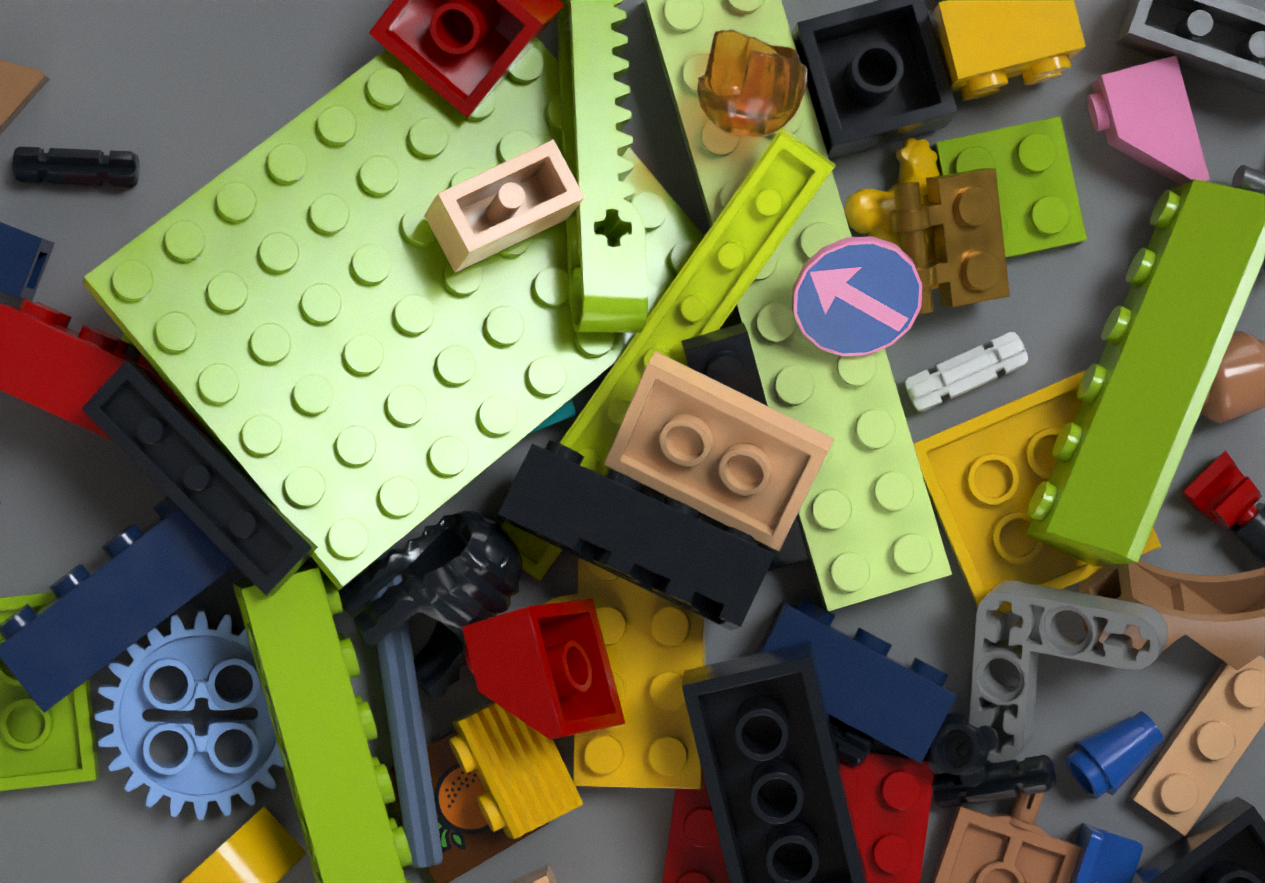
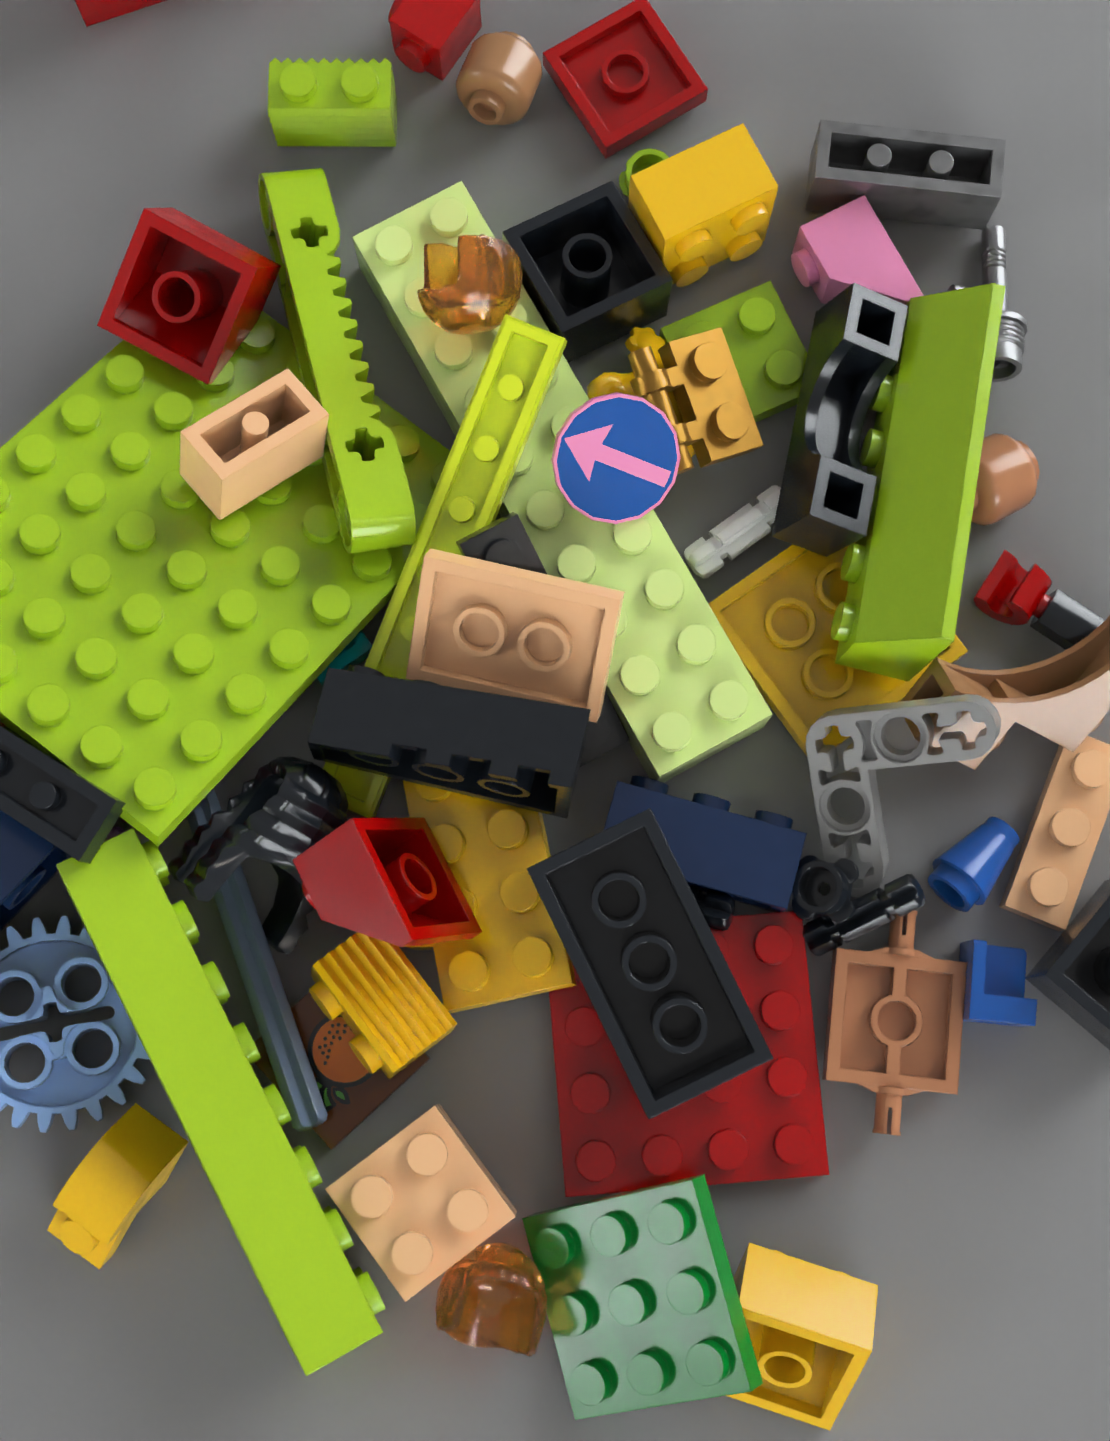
camera: 15 degrees left, 10 degrees down
(1115, 229) = (823, 487): none -> black arch

